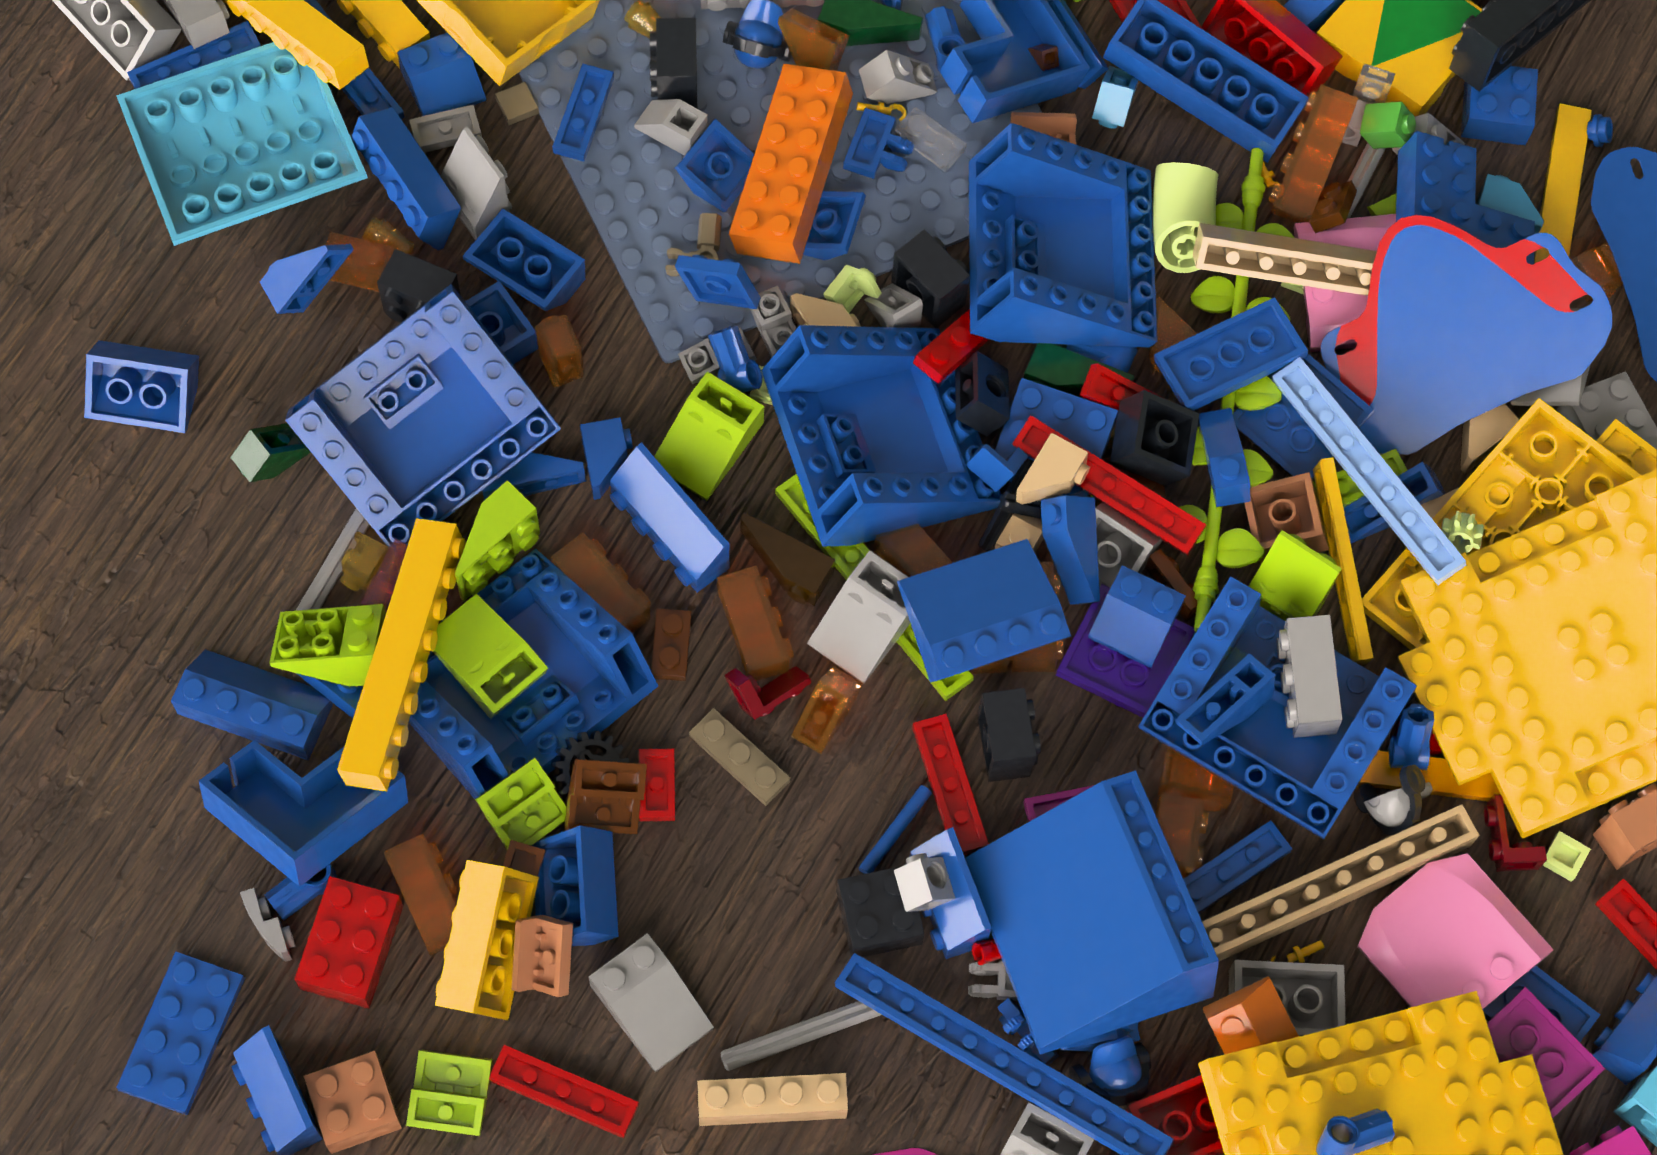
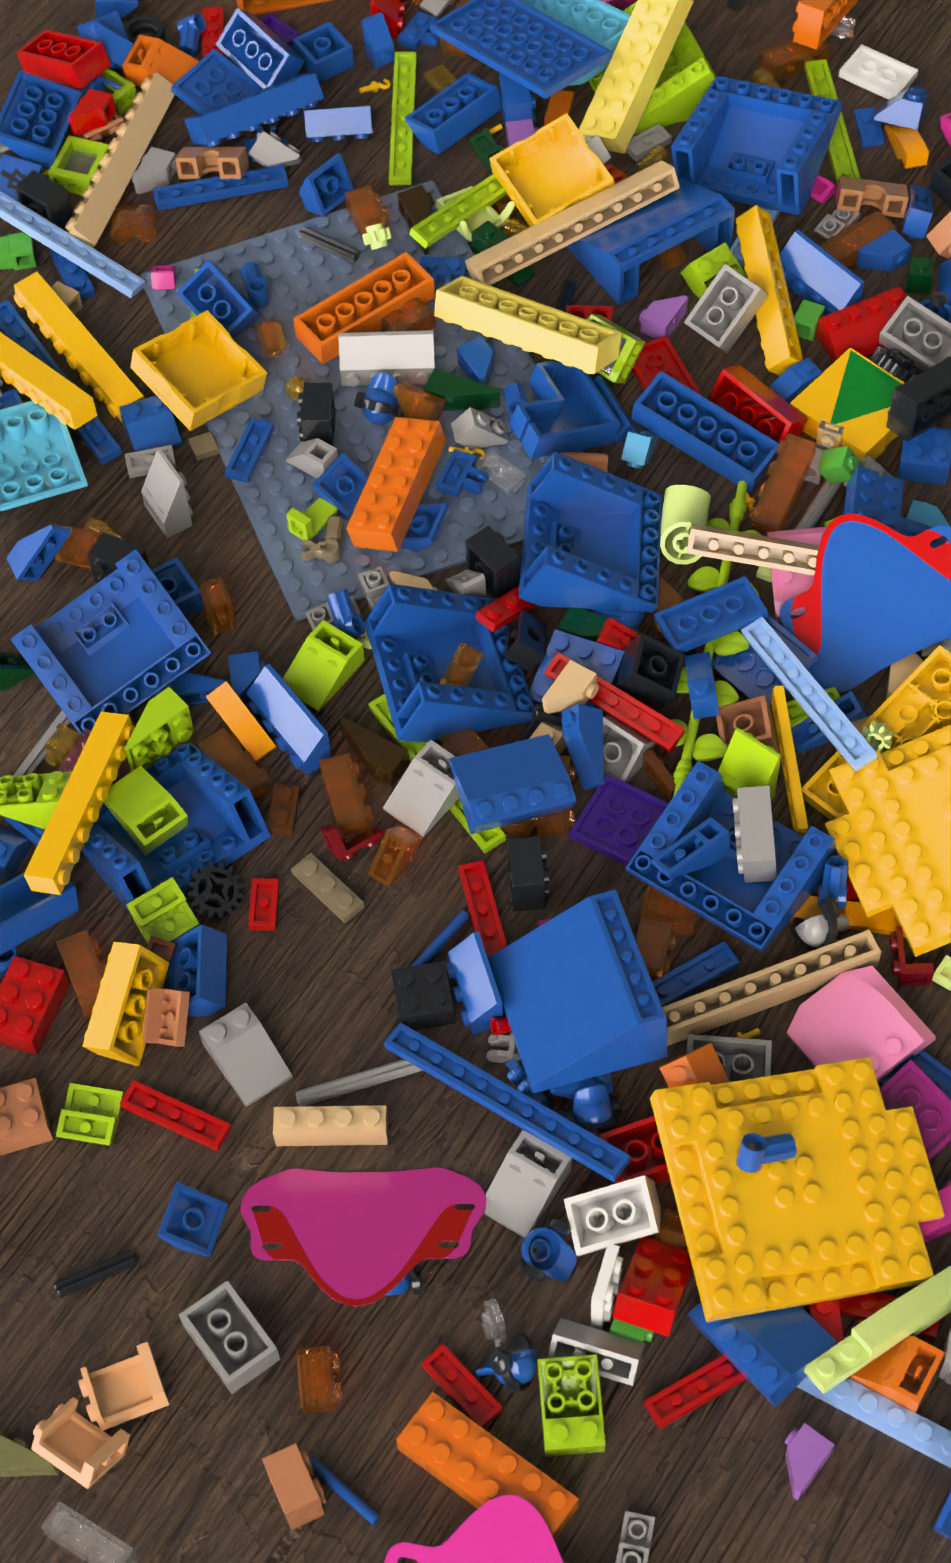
camera: 10 degrees right, 10 degrees down
(407, 175) = (117, 487): blue slope -> none
(527, 261) = (200, 546): blue slope -> none
(605, 522) = (241, 721): none -> light orange slope
(606, 795) = (224, 906): reddish brown slope -> none
(678, 217) = (308, 524): none -> lime bracket
(717, 281) = (335, 559): blue plate -> none
(851, 286) = (436, 568): yellowish green bracket -> none
(898, 442) = (462, 666): none -> clear orange brick
(923, 883) = (454, 971): light grey brick -> none
(993, 468) = (528, 688): blue panel -> none
(1045, 56) = (589, 418): reddish brown piece -> none
(1136, 616) = (630, 793): blue slope -> none
(1333, 206) = (795, 518): reddish brown plate -> none

